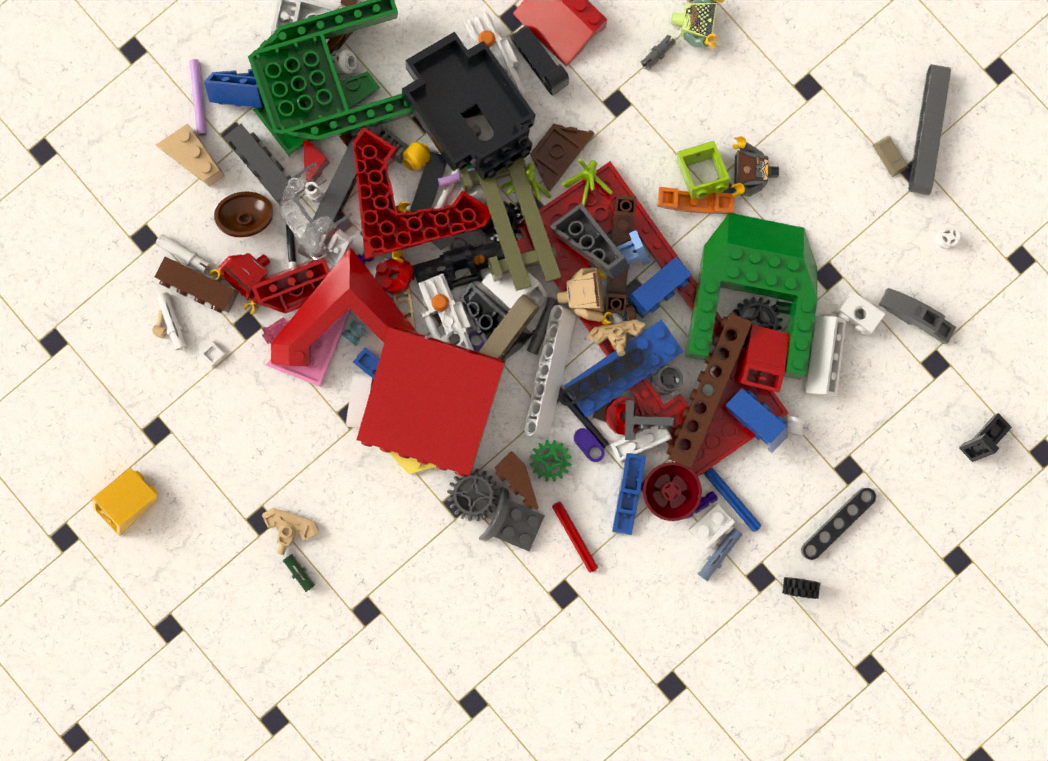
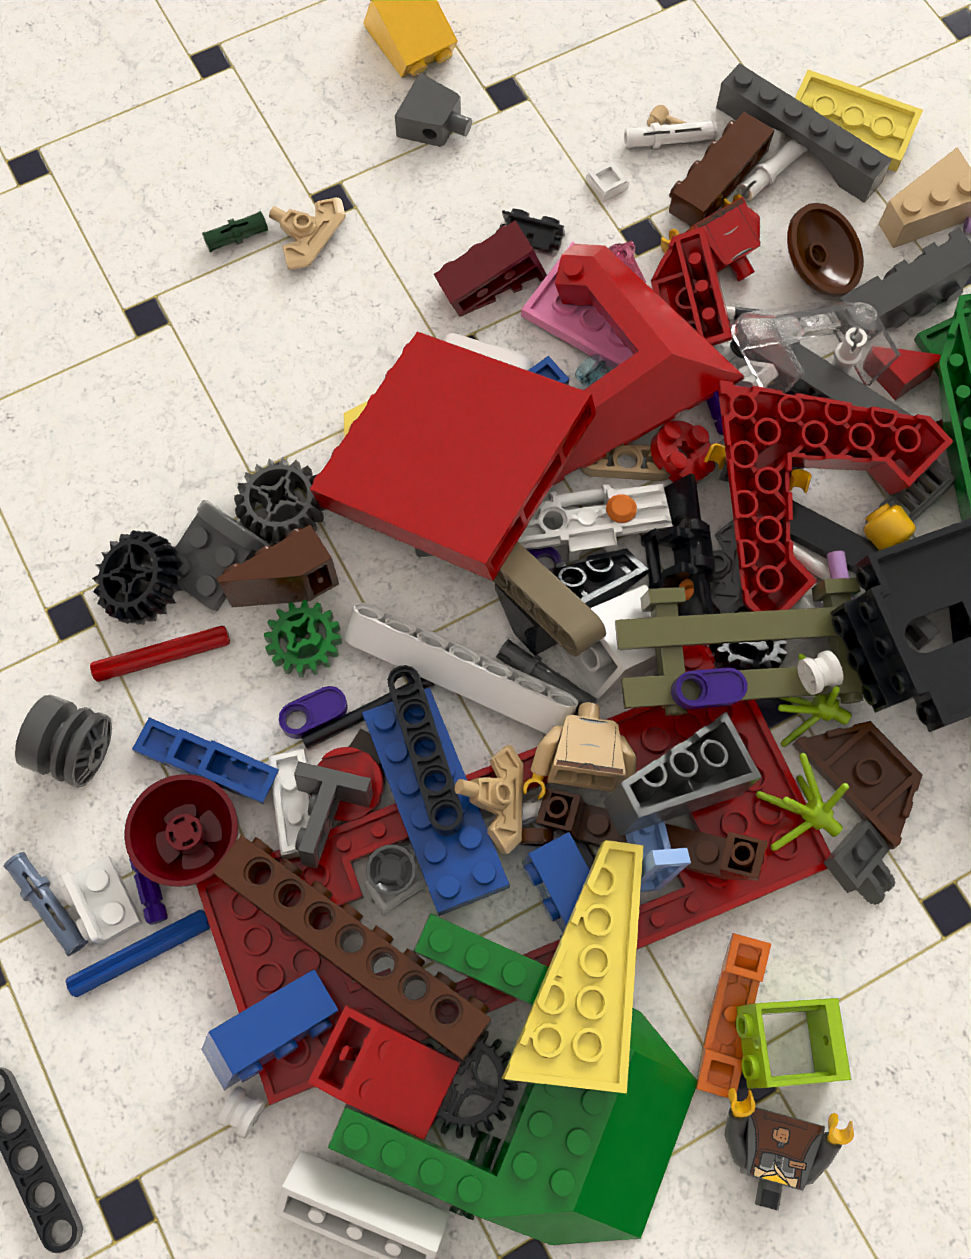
camera: 100 degrees right, 15 degrees down
(139, 211) = (865, 114): none -> light yellow gear
(167, 217) = (850, 160): none -> dark grey arch
(187, 472) = (430, 113): none -> dark grey torso
(258, 399) = (543, 230): none -> black hinge
(297, 410) = (490, 269): none -> dark red wedge
(520, 181) = (820, 672): none -> white wheel
(541, 232) = (716, 686): none -> dark purple piece
(553, 558) = (132, 584): none -> black gear
(607, 149) = (859, 863): none -> dark grey hinge
(638, 568) = (63, 740): none -> dark grey wheel
(716, 269) = (585, 1003): none -> light yellow wing

